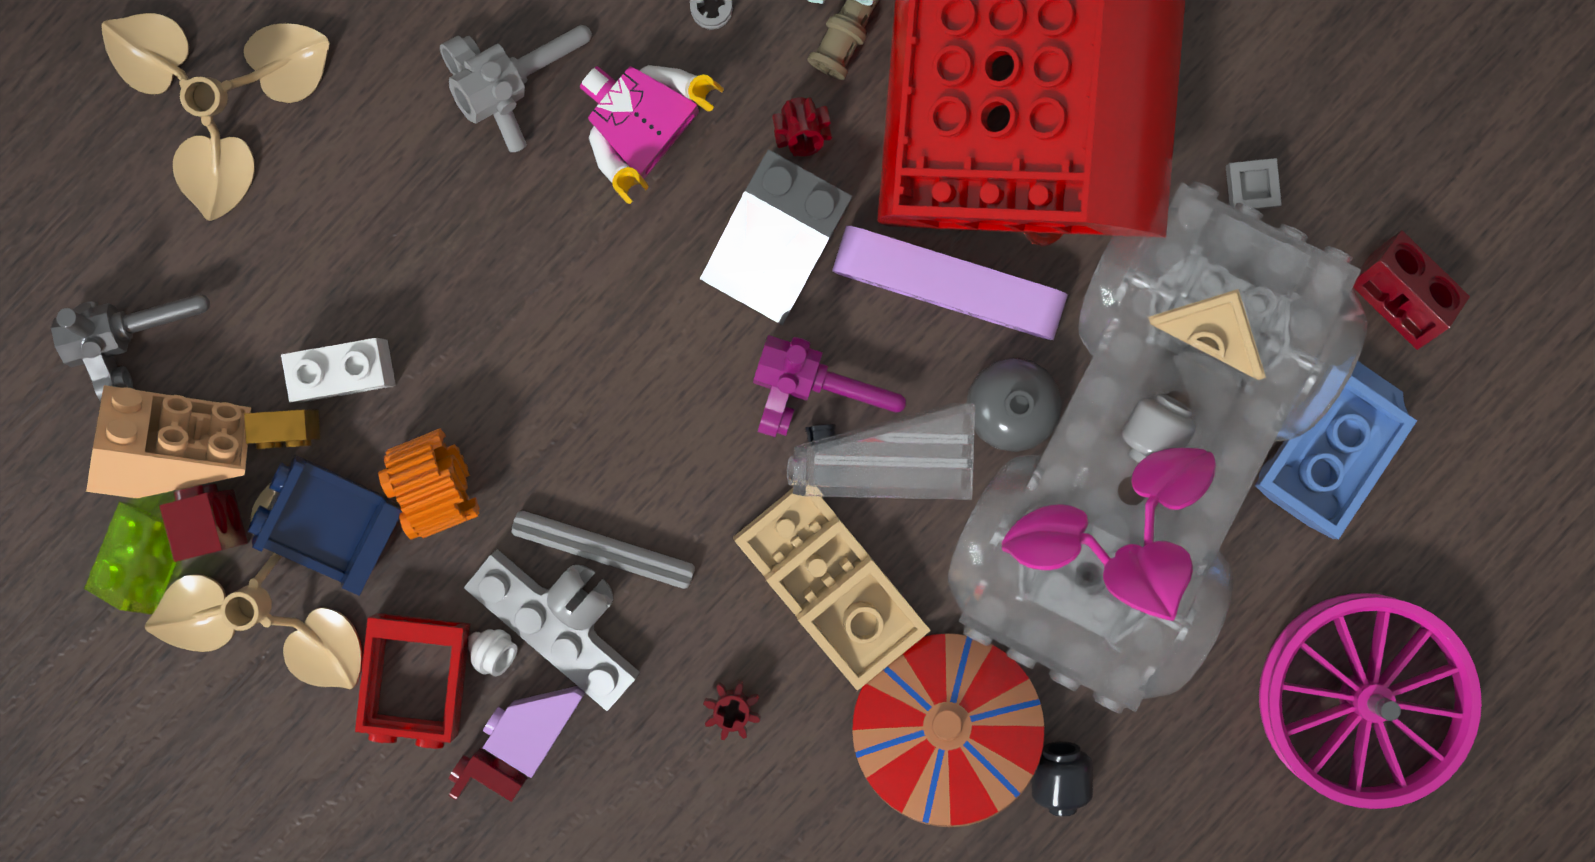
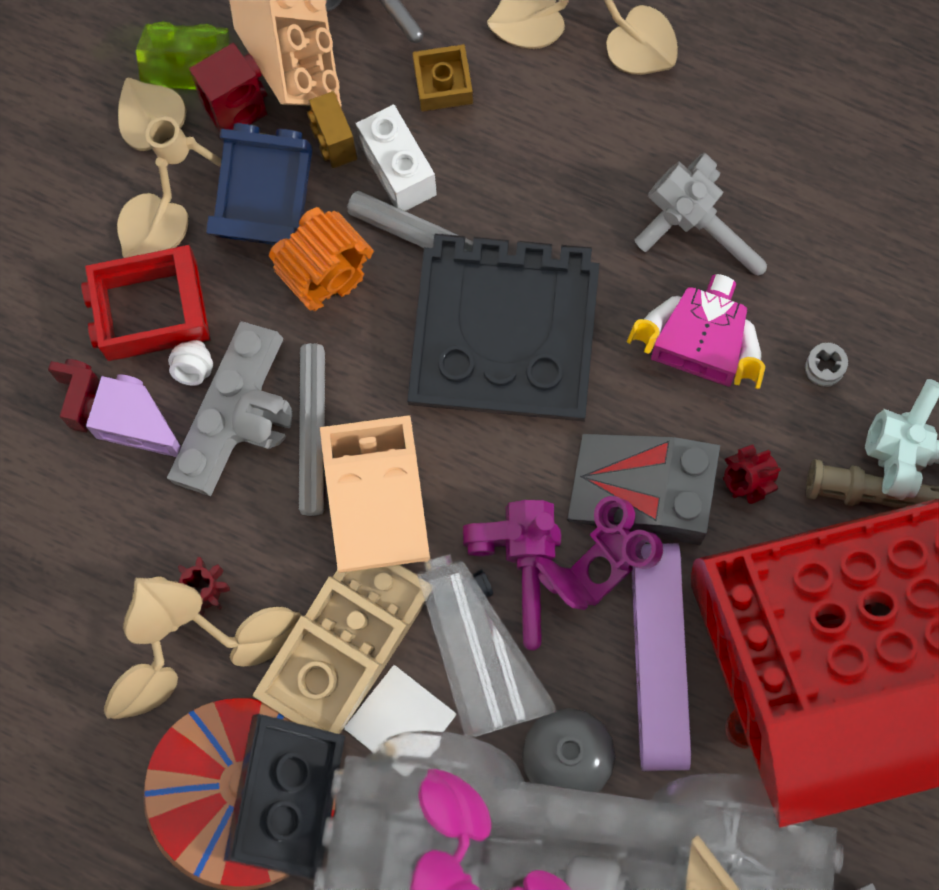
camera: 75 degrees right, 15 degrees down
(258, 289) = (443, 77): none -> pearl gold piece
(431, 365) = (396, 220): none -> light grey axle
(563, 319) = (504, 328): none -> black hinge
(700, 510) = (374, 494): none -> light nougat slope
(760, 751) = (162, 607): none -> tan plant
(854, 342) = (615, 544): none -> magenta piece
(919, 553) = (396, 708): none -> white sticker
(972, 690) = (284, 797): none -> black tile

